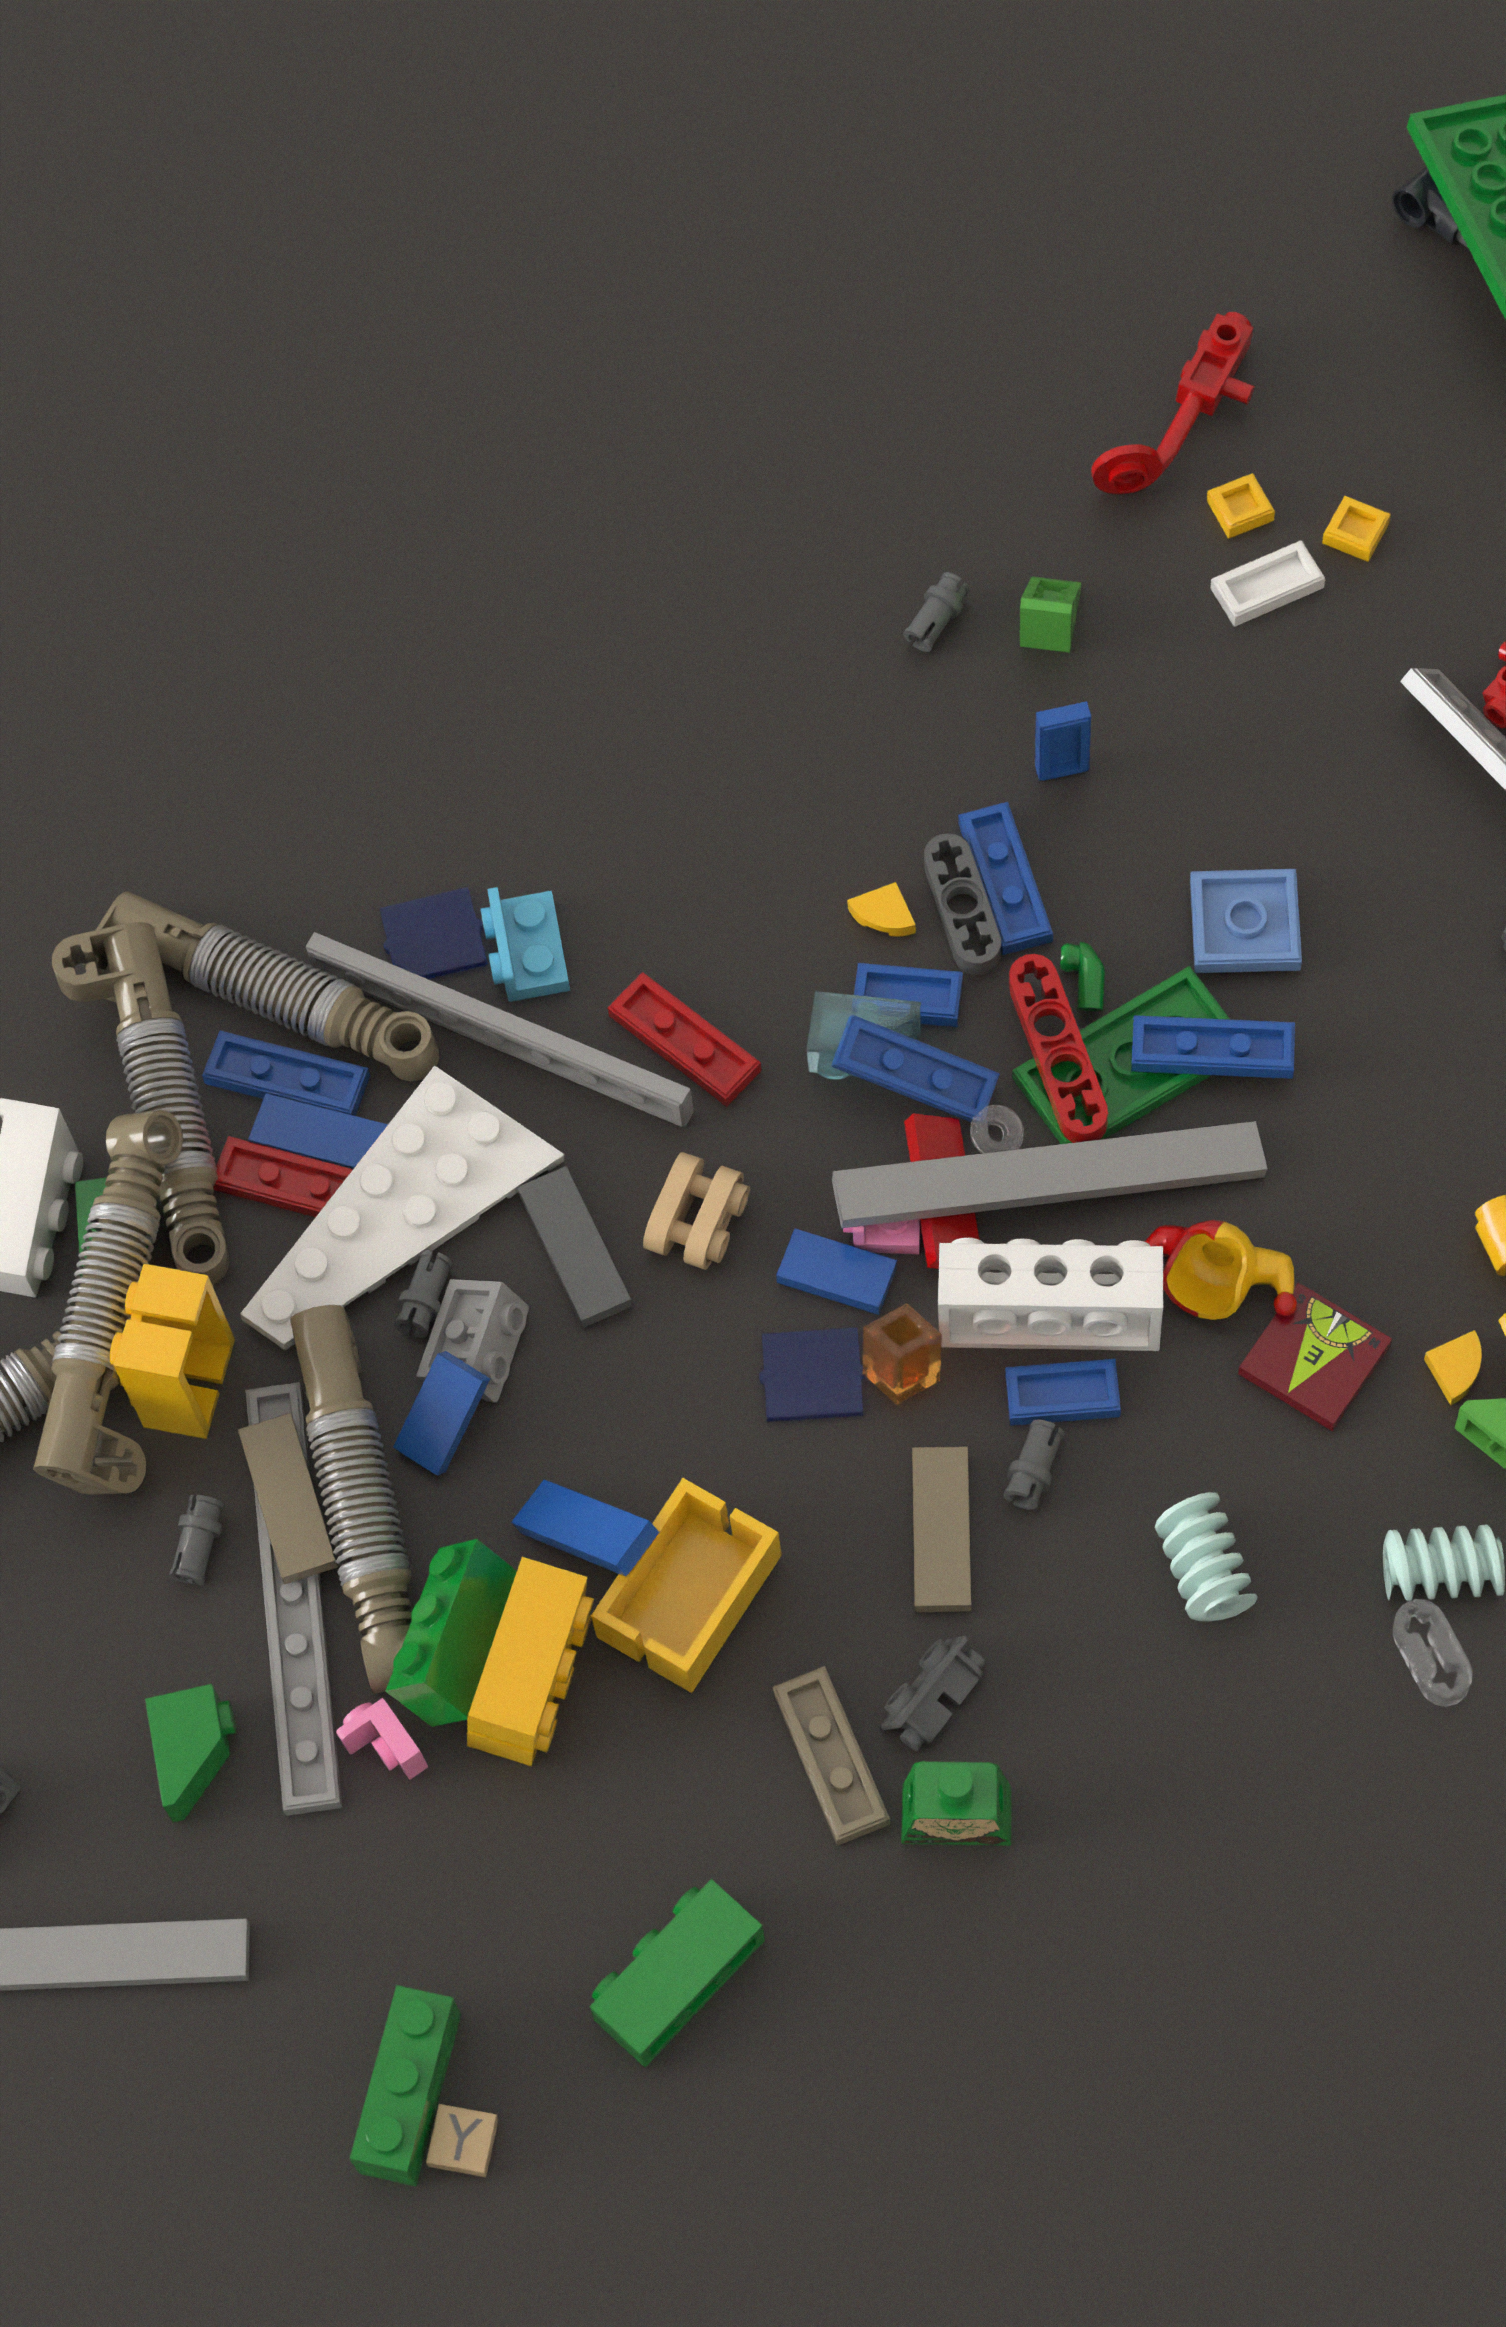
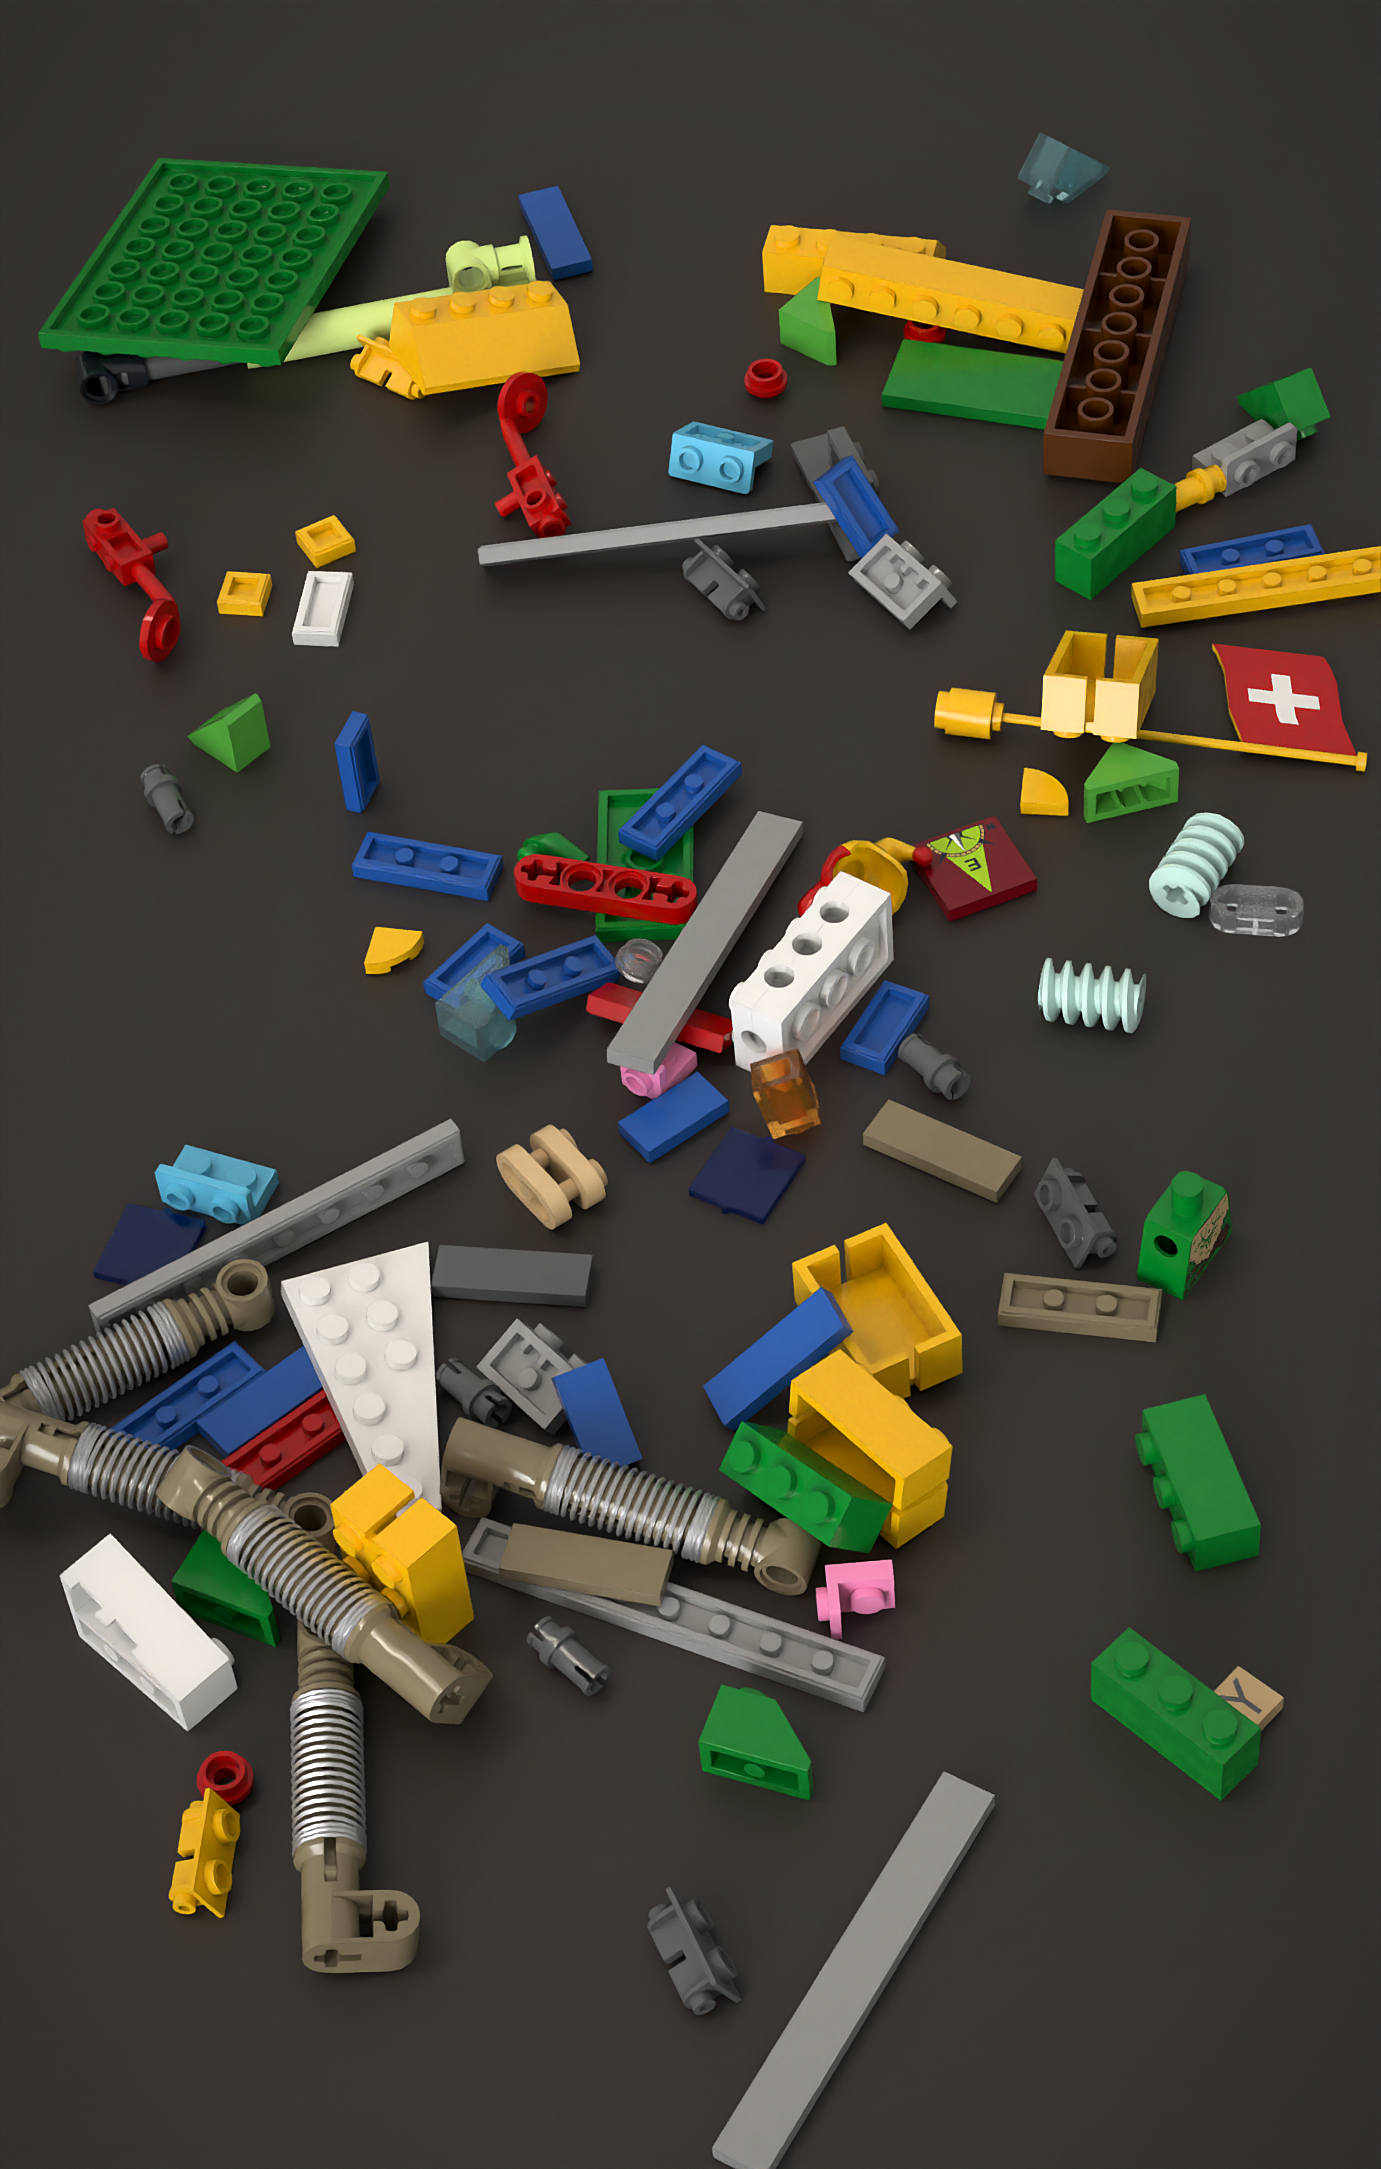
camera: 60 degrees left, 15 degrees down
(684, 1039) = (387, 1123): red tile -> none
(954, 924) = (394, 894): dark grey beam -> none
(1245, 921) = (590, 742): medium blue plate -> none

